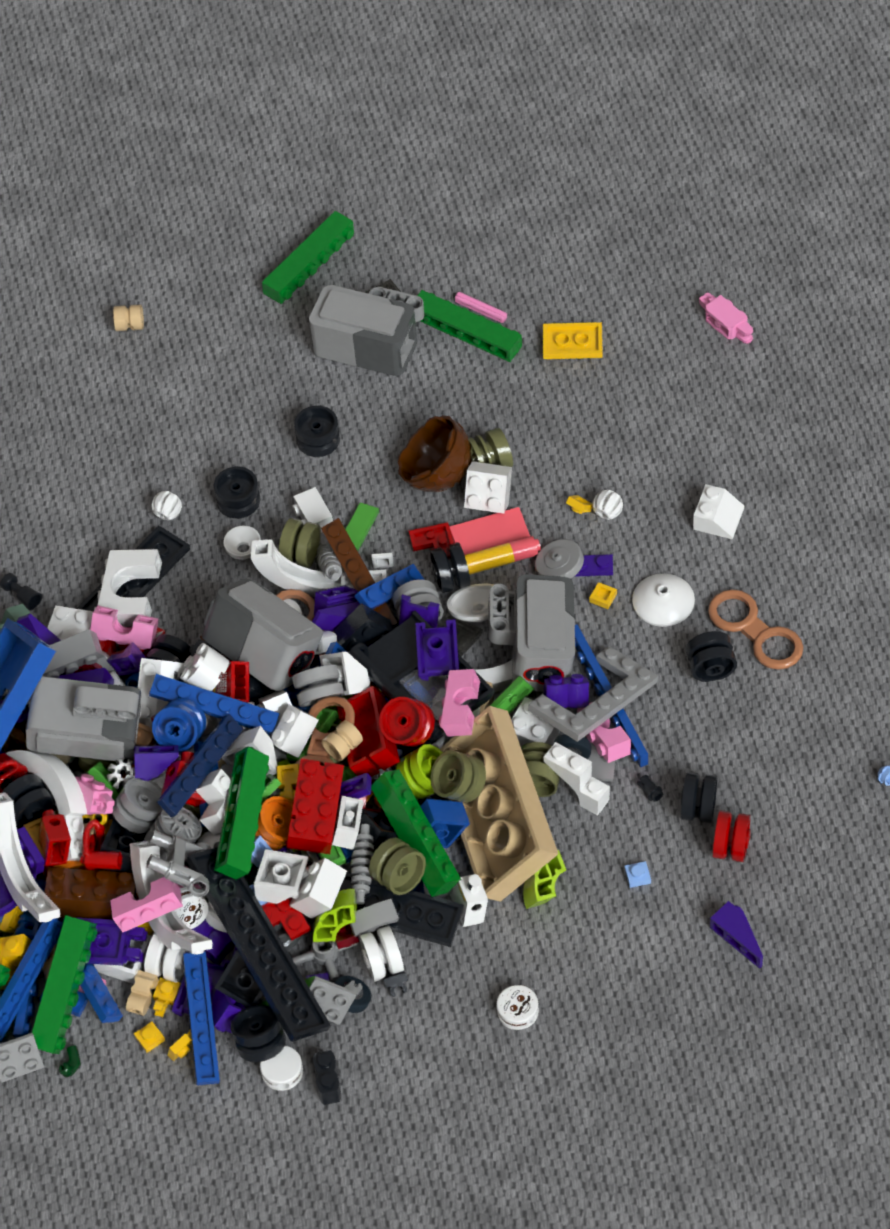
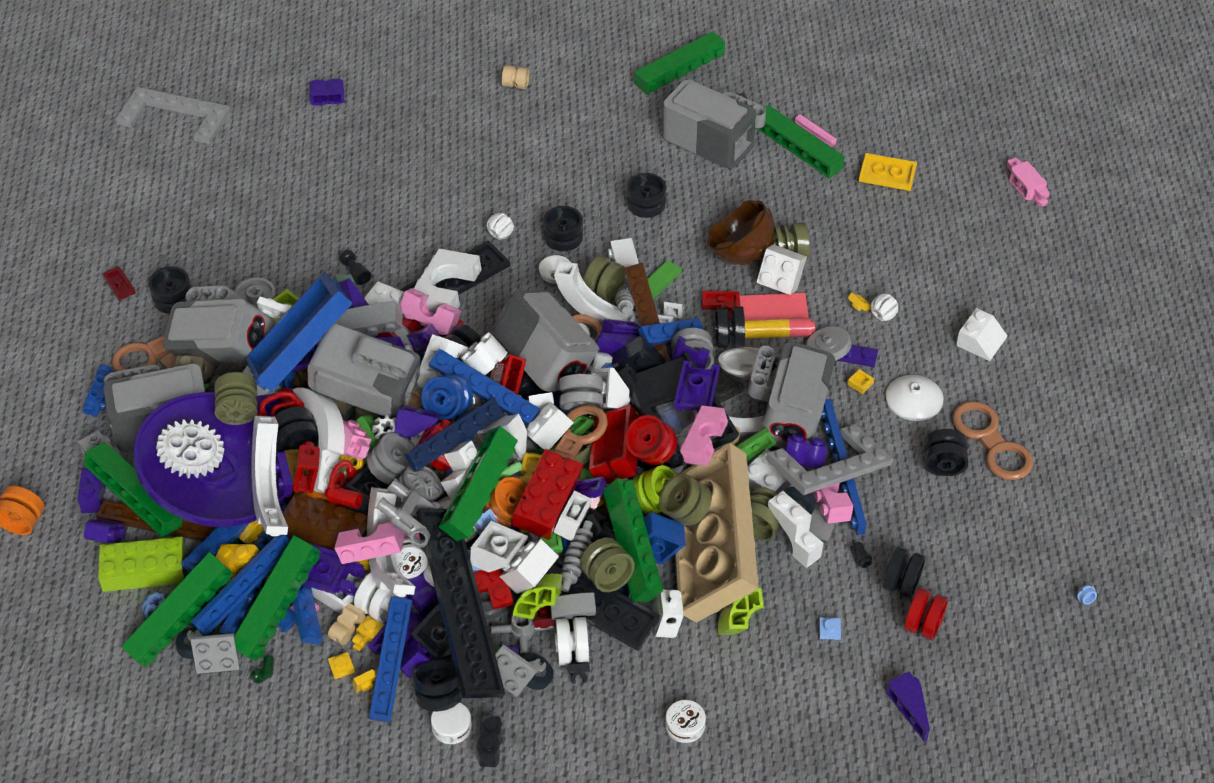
camera: 10 degrees right, 5 degrees down
(340, 742) = (591, 442): tan wheel -> none

